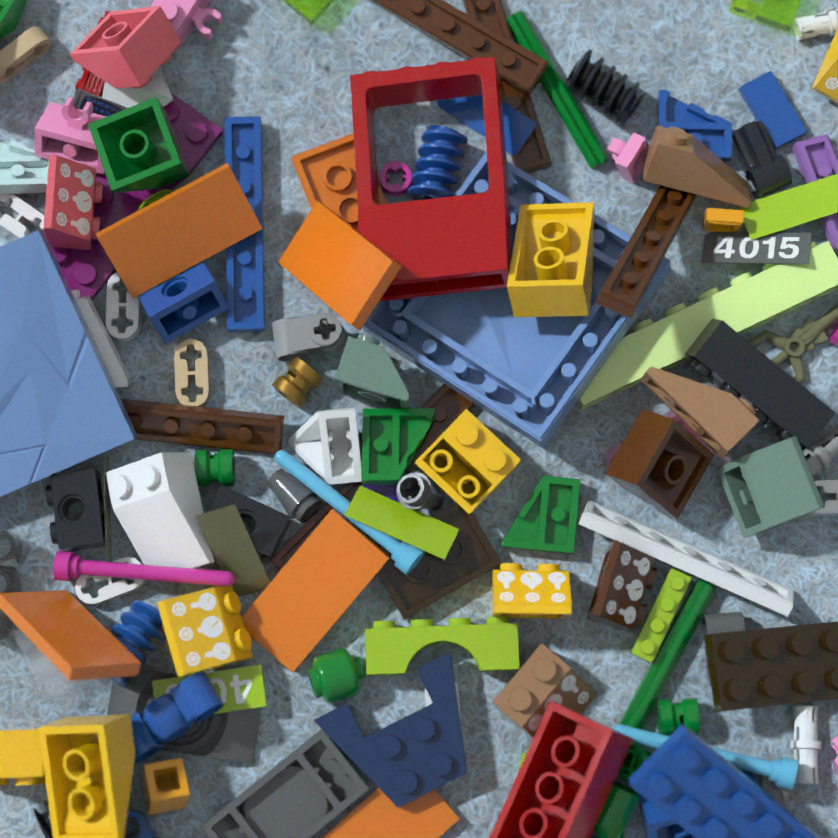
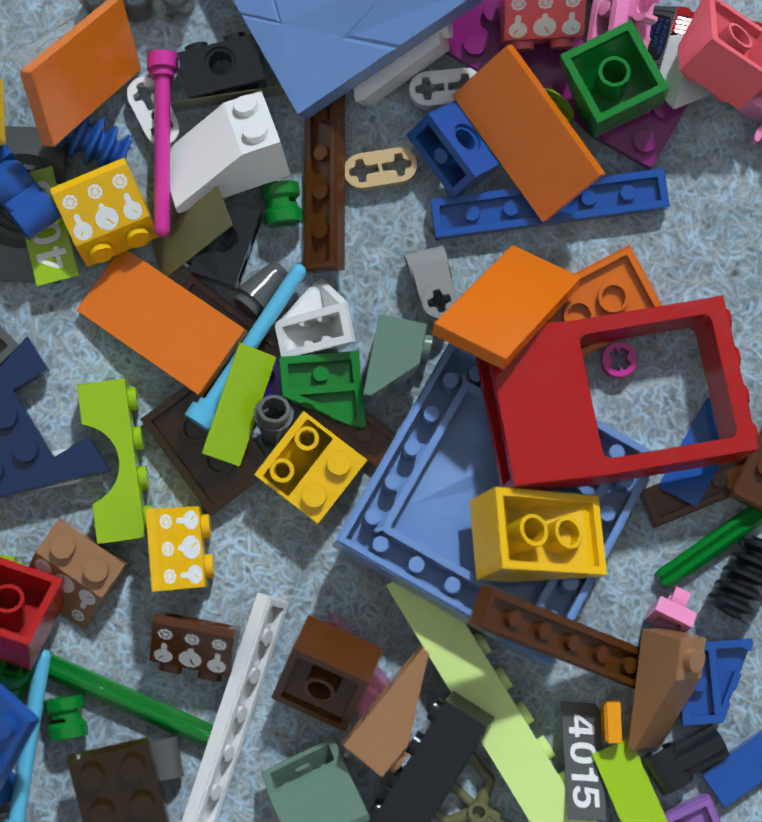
camera: 80 degrees right, 5 degrees up
(297, 382) = (381, 279): pearl gold wheel -> none
(336, 675) = (75, 354): green head -> none
(436, 163) = (637, 402): blue piece -> none
(547, 518) = (263, 559): green wing -> none
(661, 616) = (171, 690): lime piece -> none

